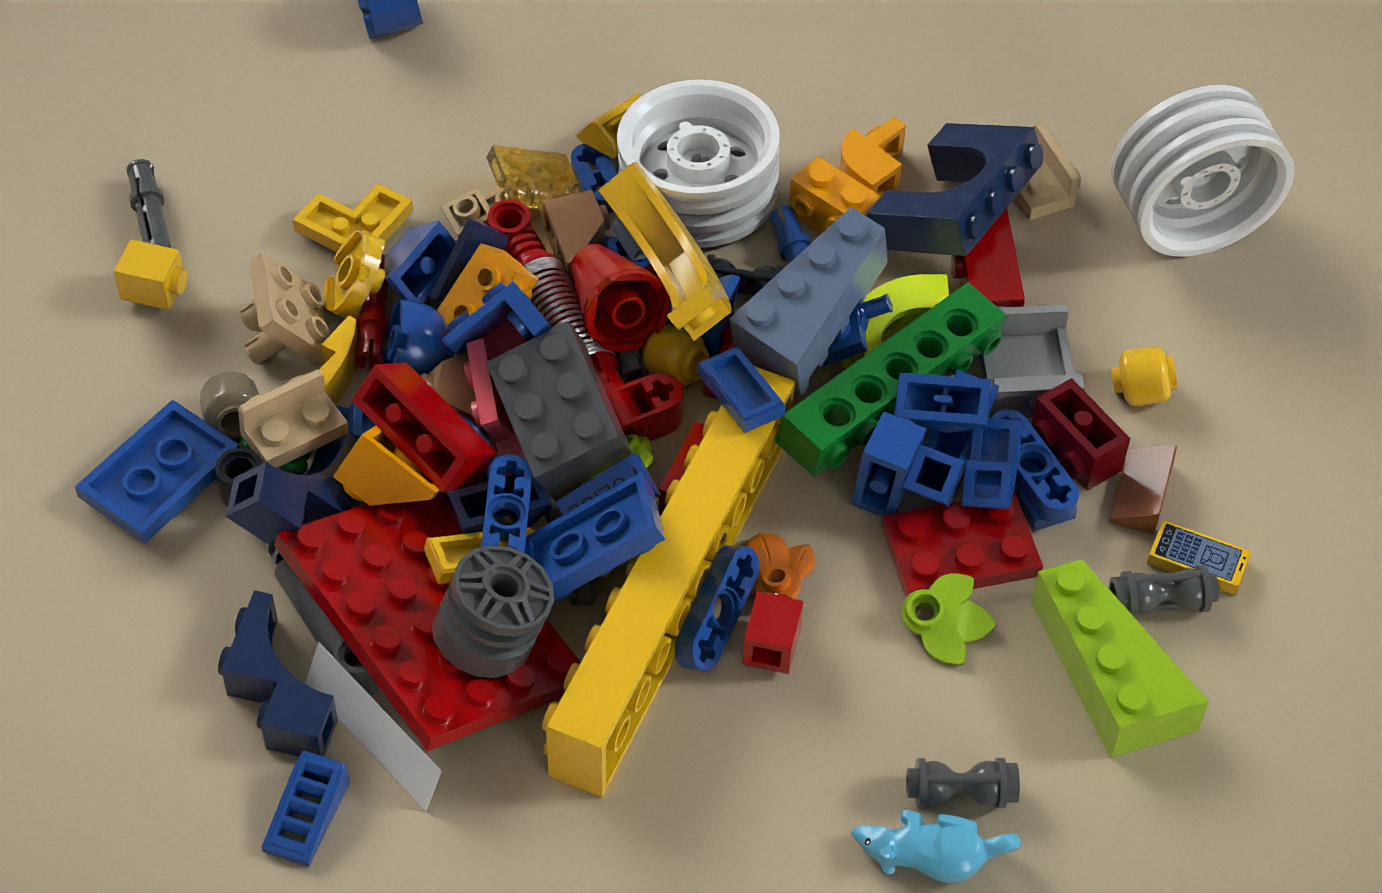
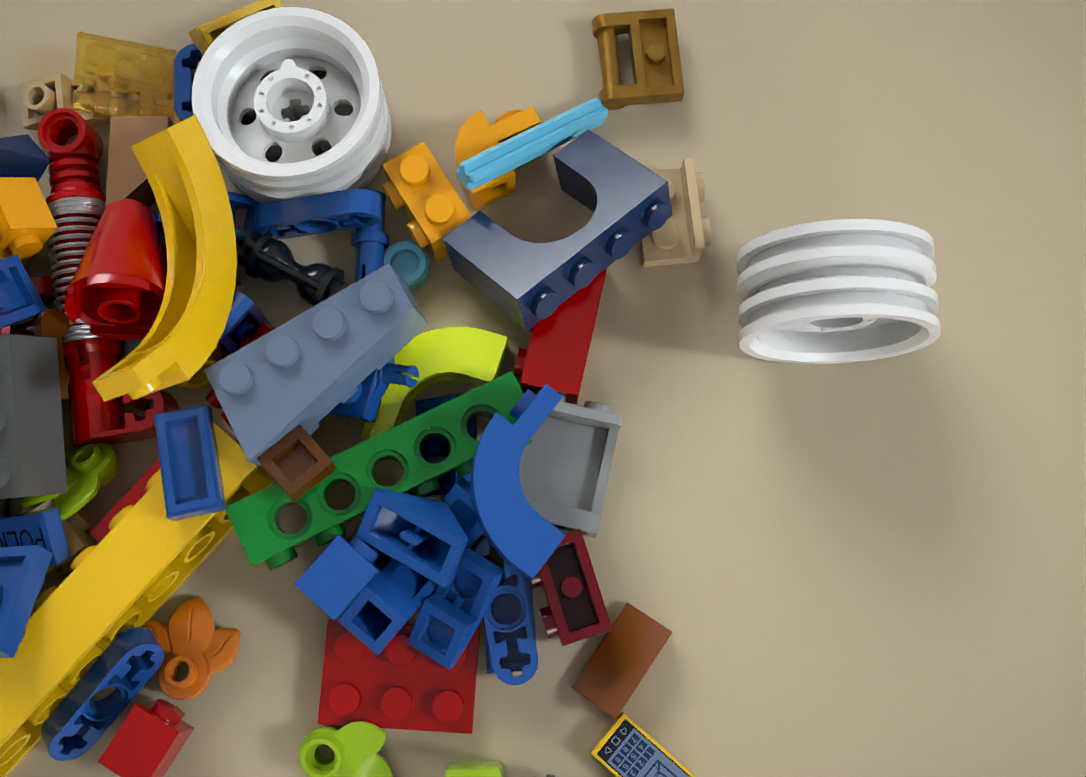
camera: 15 degrees right, 25 degrees up
(772, 220) = (319, 213): none -> blue beam
(831, 364) = (296, 463): none -> reddish brown plate
(904, 141) = (530, 144): none -> medium azure axle
(971, 69) = (653, 57): none -> pearl gold plate
(996, 351) = (496, 493): none -> blue arch
(1145, 376) = (677, 523): yellow head -> none

